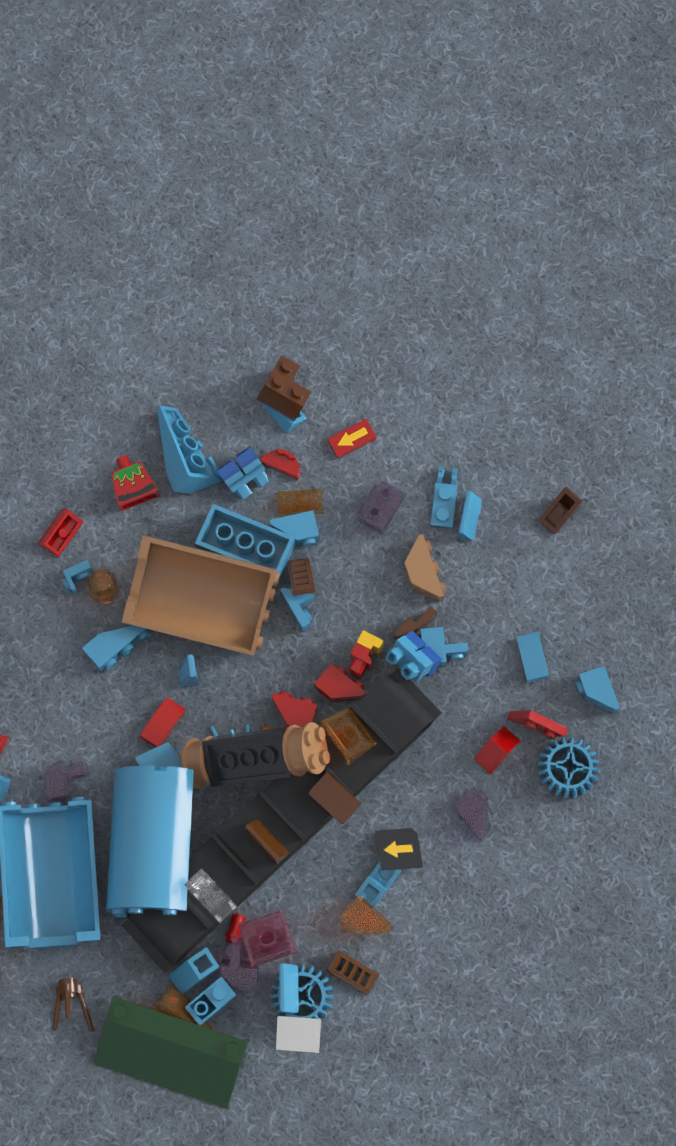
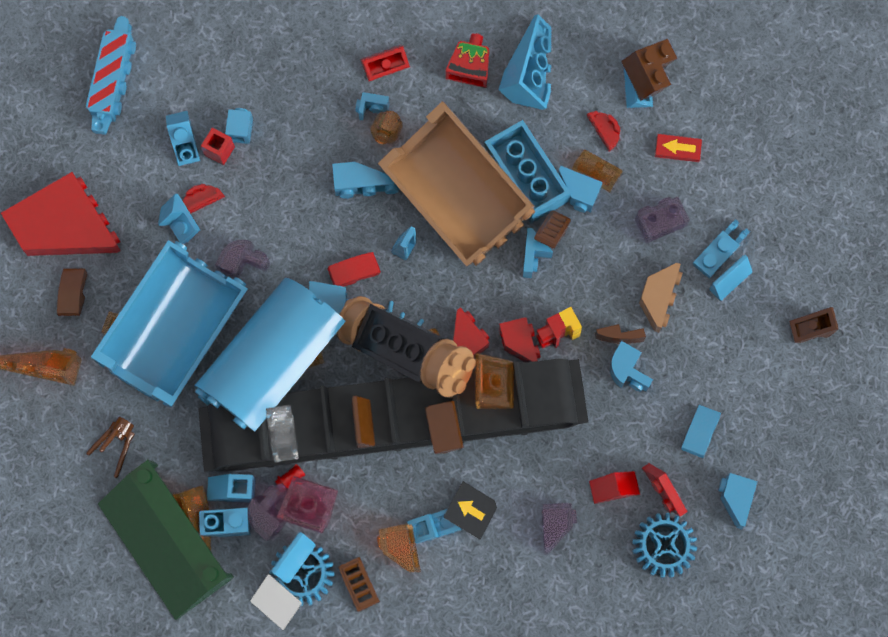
camera: 35 degrees right, 0 degrees up
(236, 479) = (557, 113): hips -> none
(413, 657) = (598, 359): dark azure hips -> none

